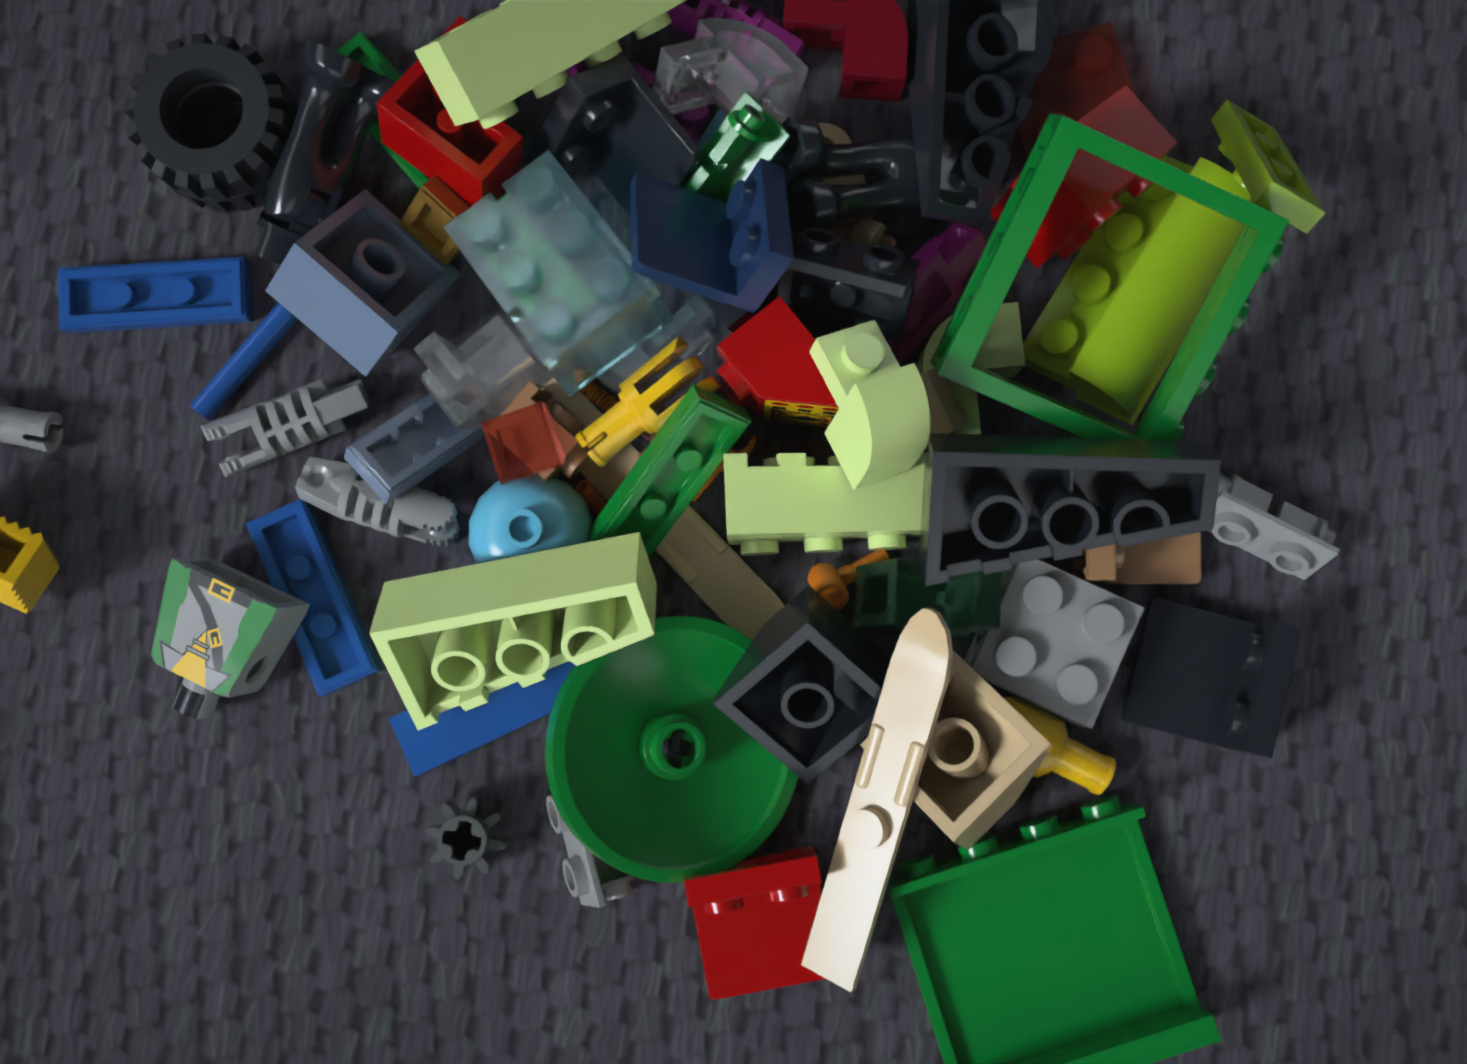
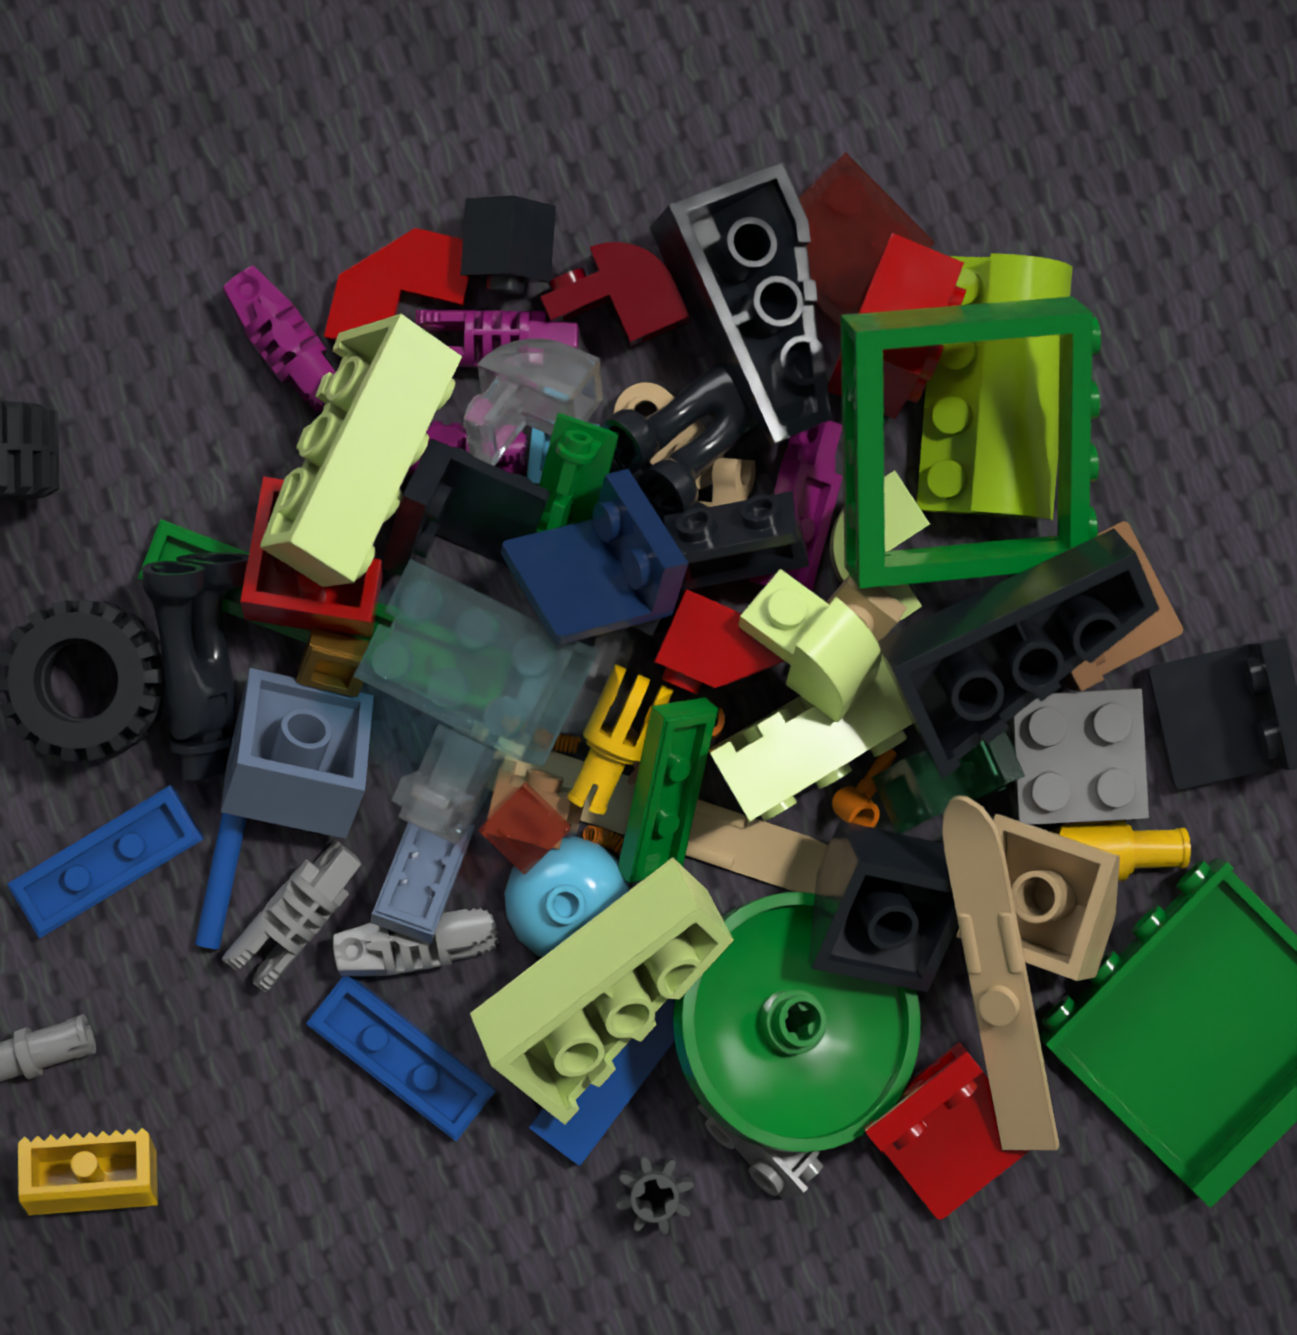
camera: 25 degrees left, 5 degrees up
(220, 632) = (343, 1130): torso -> none
(1266, 167) = (1052, 236): lime plate -> none
(1289, 540) = (1247, 551): light grey hinge -> none

